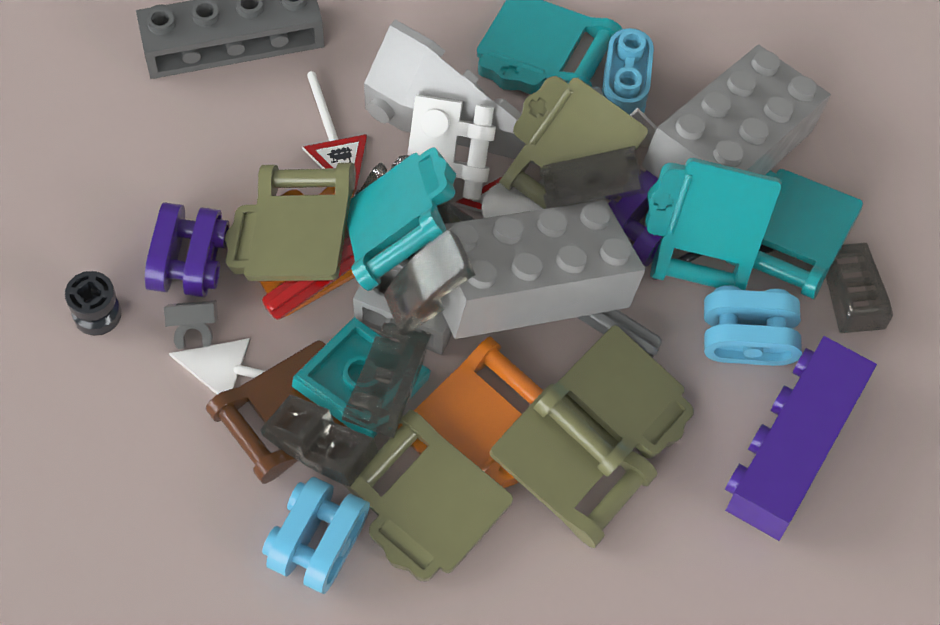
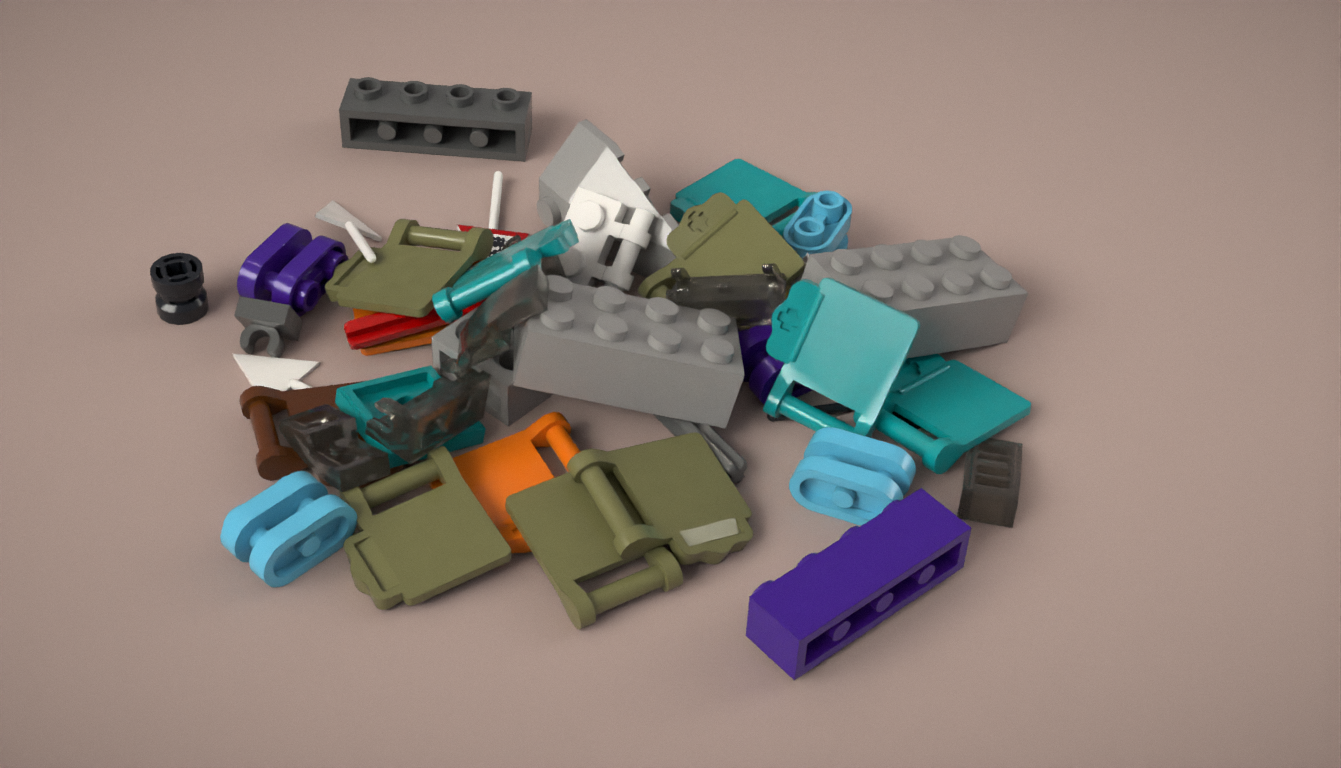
camera: 20 degrees right, 20 degrees down
(198, 173) = (337, 215): none -> white piece

